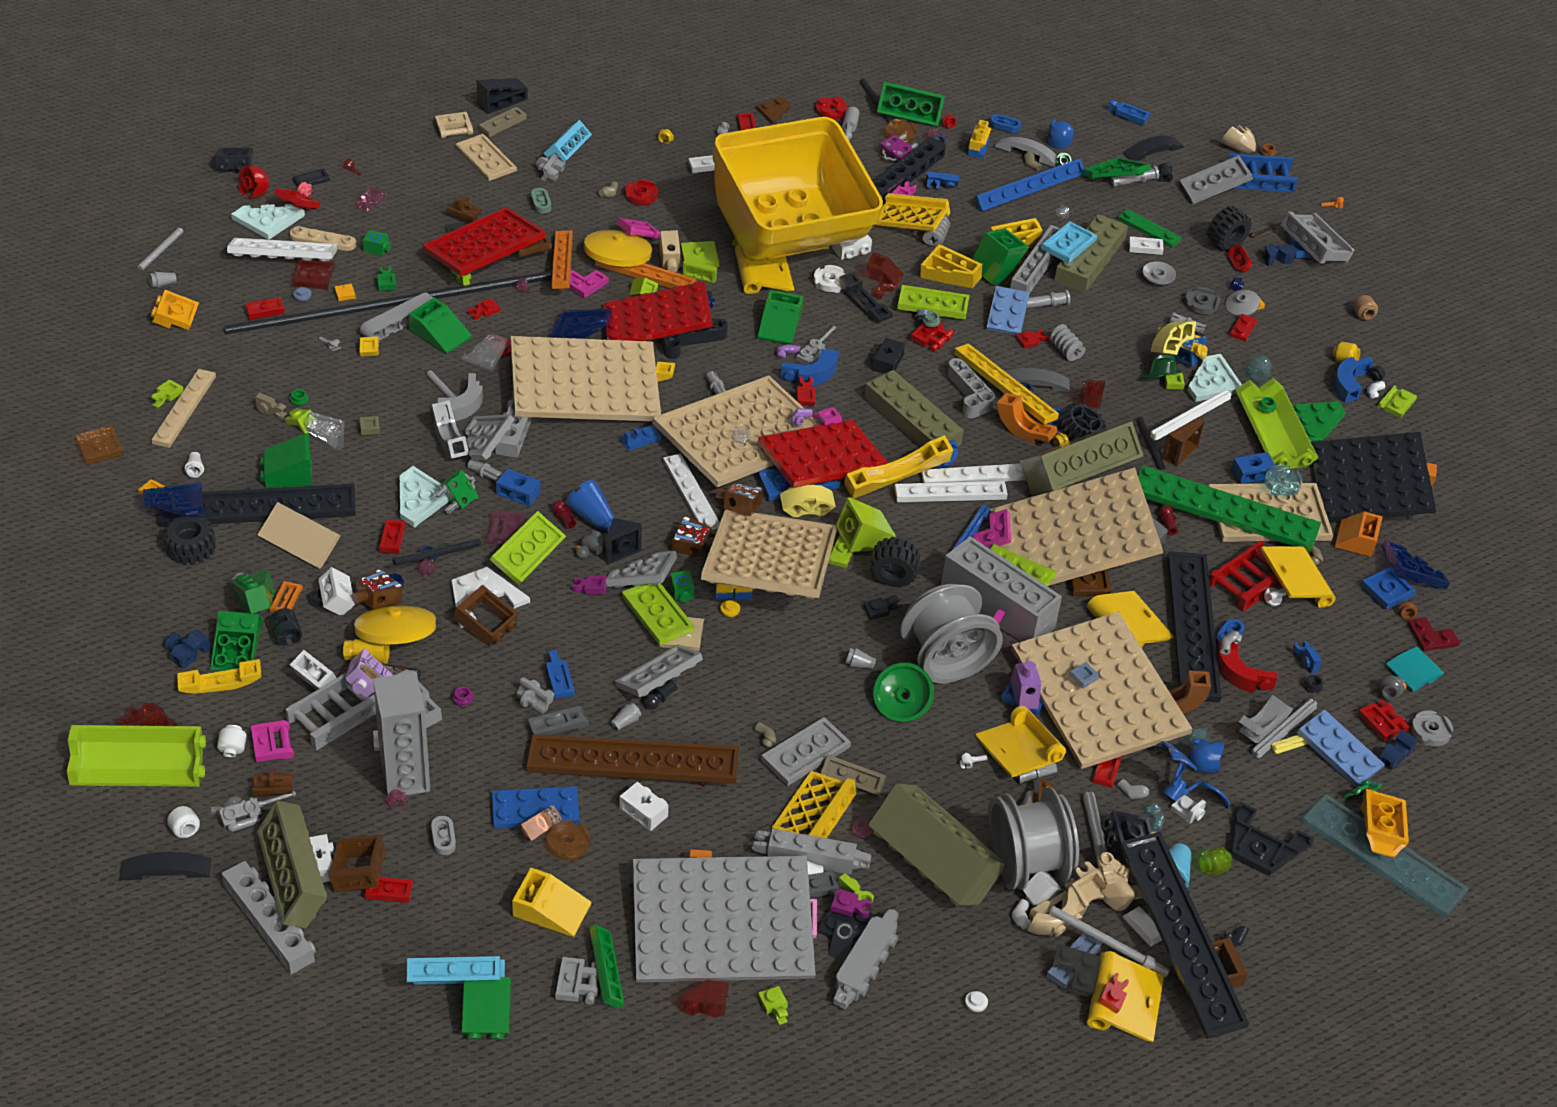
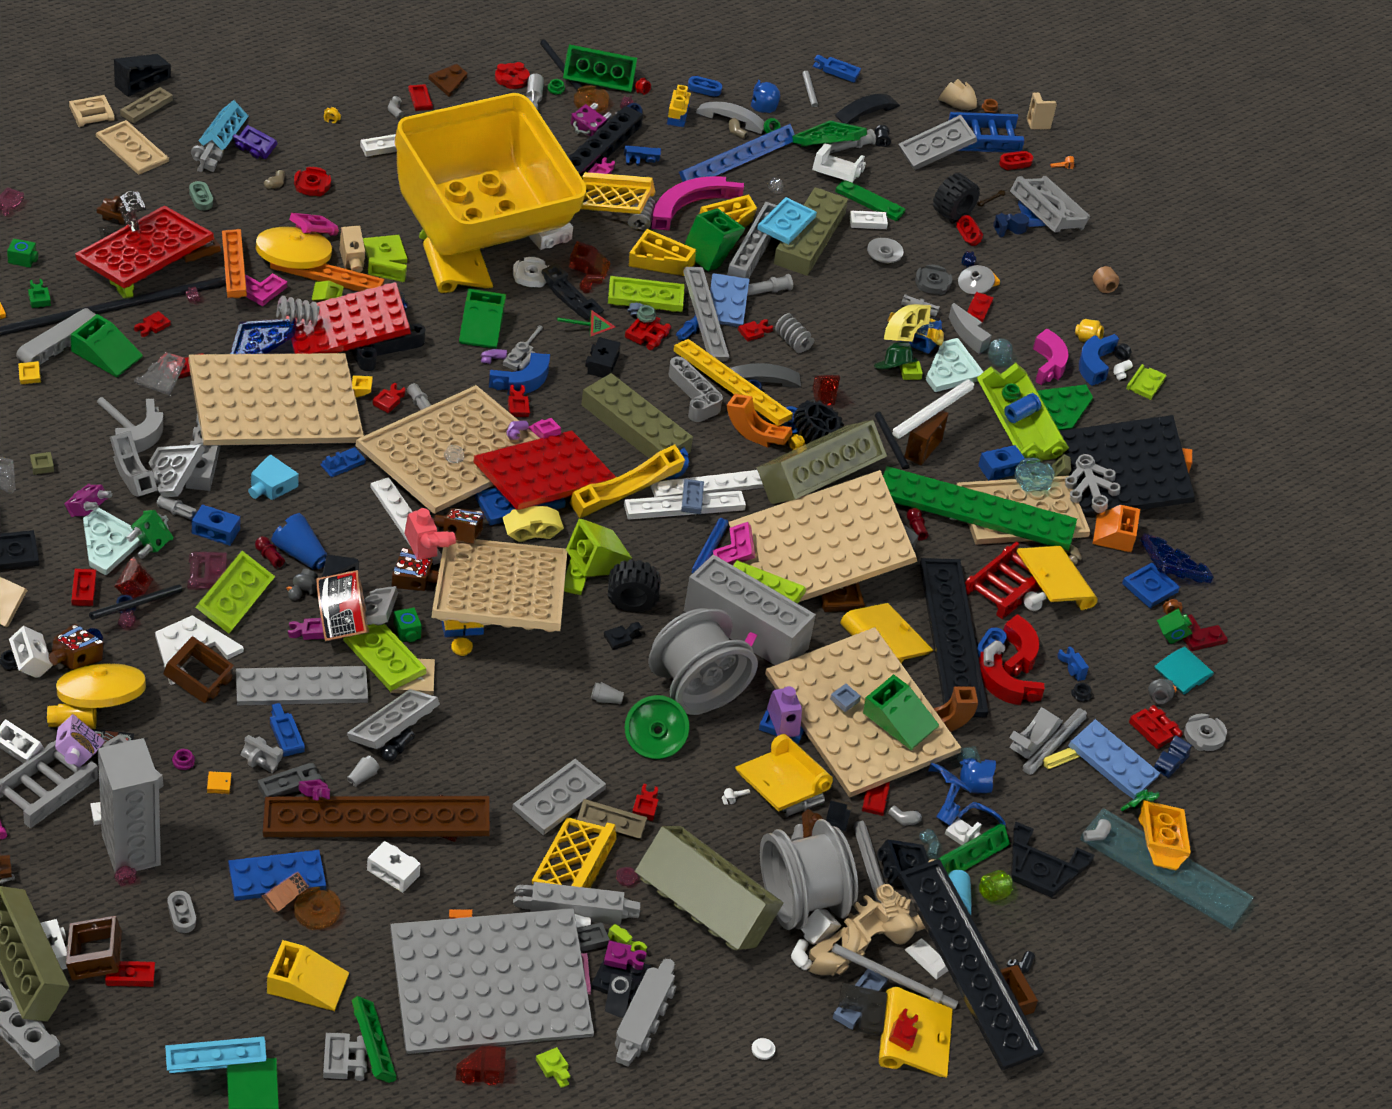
camera: 10 degrees left, 0 degrees up
(404, 459) = (86, 500): none -> magenta piece
(438, 532) = (134, 579): none -> clear red slope
(475, 203) = (131, 204): none -> clear smoke bracket
(492, 719) = (219, 782): none -> light orange tile
(574, 449) = (272, 479): none -> medium azure torso
(578, 730) = (314, 789): none -> magenta plate
(579, 635) = (301, 685): none -> light grey plate
(594, 156) = (255, 142): none -> dark purple bracket
(613, 301) = (297, 309): none -> light grey piece
(622, 565) = (342, 605): none -> slope
(687, 385) = (388, 400): none -> red plate
(704, 506) = (423, 535): none -> coral torso
(768, 733) = (516, 779): dark tan arm -> none
(870, 119) = (556, 86): none -> green plate
(885, 328) = (597, 323): none -> piece
(887, 763) = (646, 803): none -> red plate
(958, 484) = (692, 496): none -> sand blue plate
(972, 333) = (688, 328): none -> blue axle
(983, 214) = (691, 191): none -> dark pink arch
(986, 321) = (706, 313): none -> light grey plate
(1069, 783) = (839, 813): none -> black panel
(1102, 130) = (810, 89): none -> light grey bar
(1119, 197) = (837, 167): none -> white panel
(1135, 691) = (900, 712): none -> green slope
(1198, 826) = (976, 849): none -> green plate
(1232, 346) = (969, 329): none -> light grey slope
(1263, 632) = (1026, 641): none -> red arch
(1277, 419) = (1022, 408): none -> blue piece
(1288, 198) = (1016, 160): none -> red plate
(1310, 474) = (1062, 466): none -> olive plate
(1313, 372) = (1056, 353): none -> dark pink arch
(1315, 157) = (1040, 112): none -> tan panel
(1321, 817) = (1100, 833): none -> light grey arm
(1334, 474) = (1086, 465): none -> light grey plant
(1409, 627) = (1175, 626): none -> green brick

